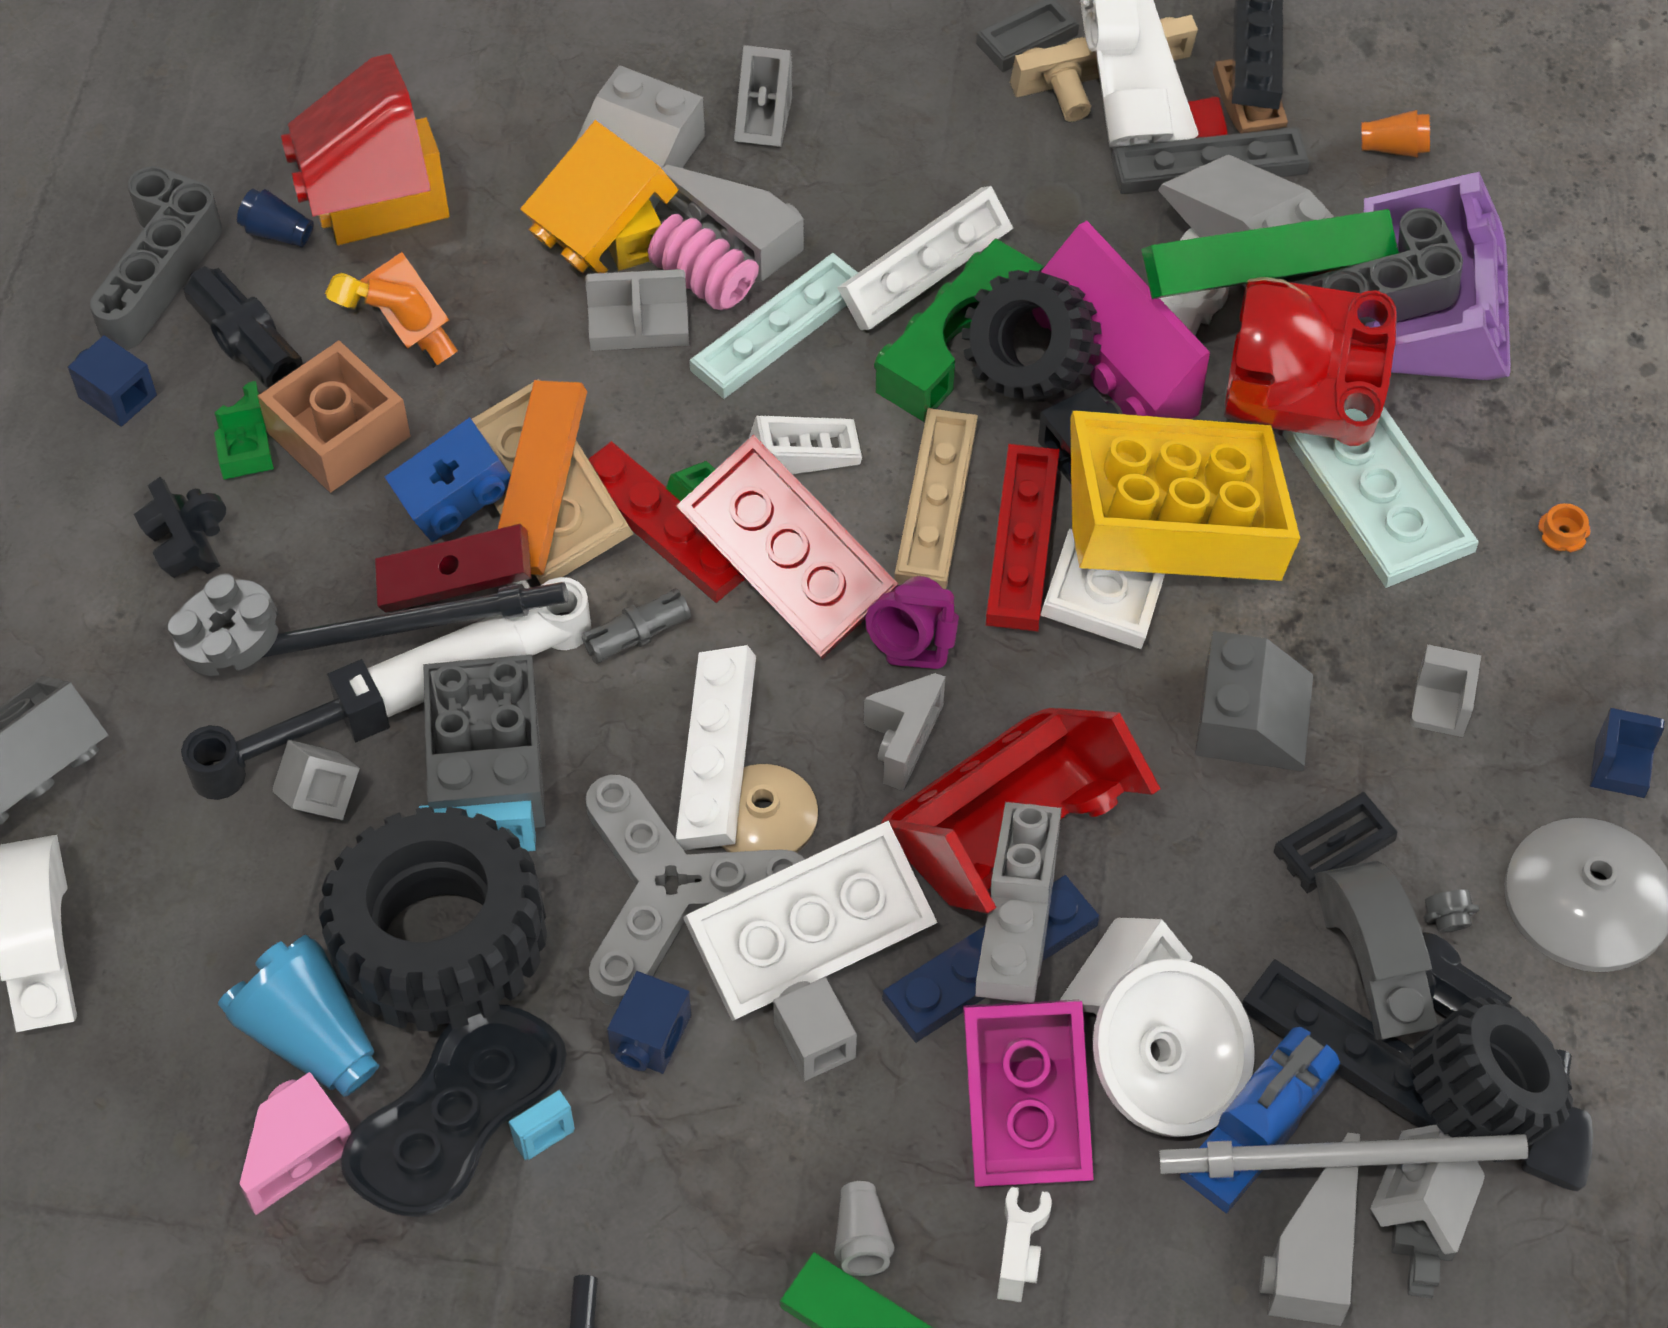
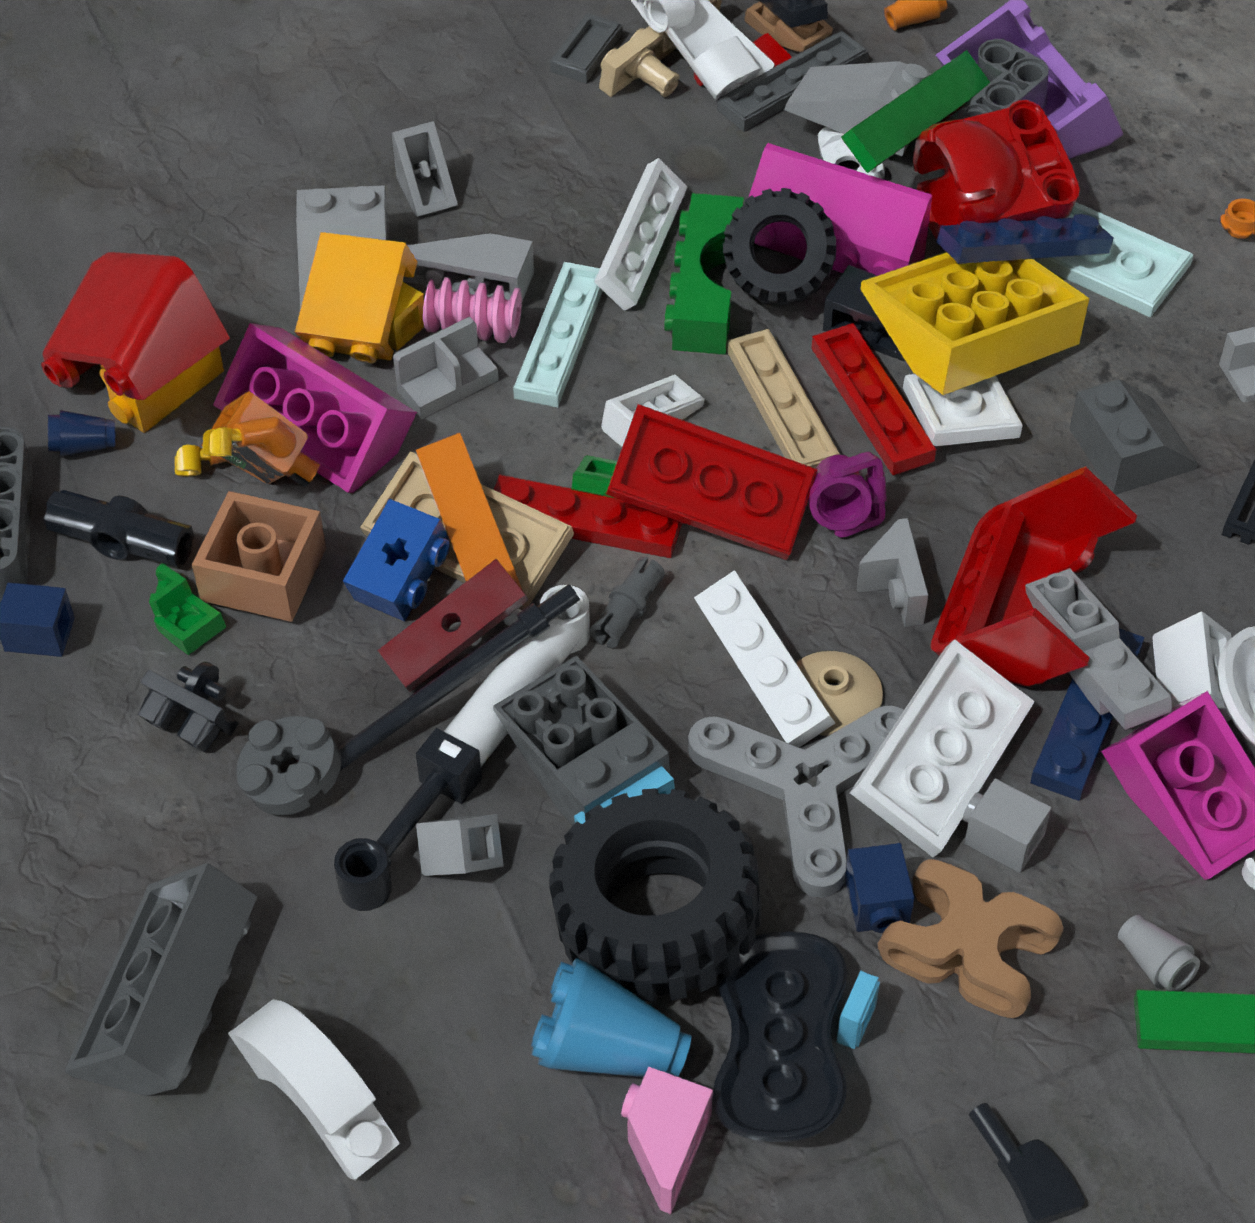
camera: 30 degrees left, 5 degrees down
(493, 291) = (347, 419): none -> dark pink slope
(697, 1116) = (971, 938): none -> medium nougat piece
(1289, 444) = (1024, 239): none -> dark blue plate

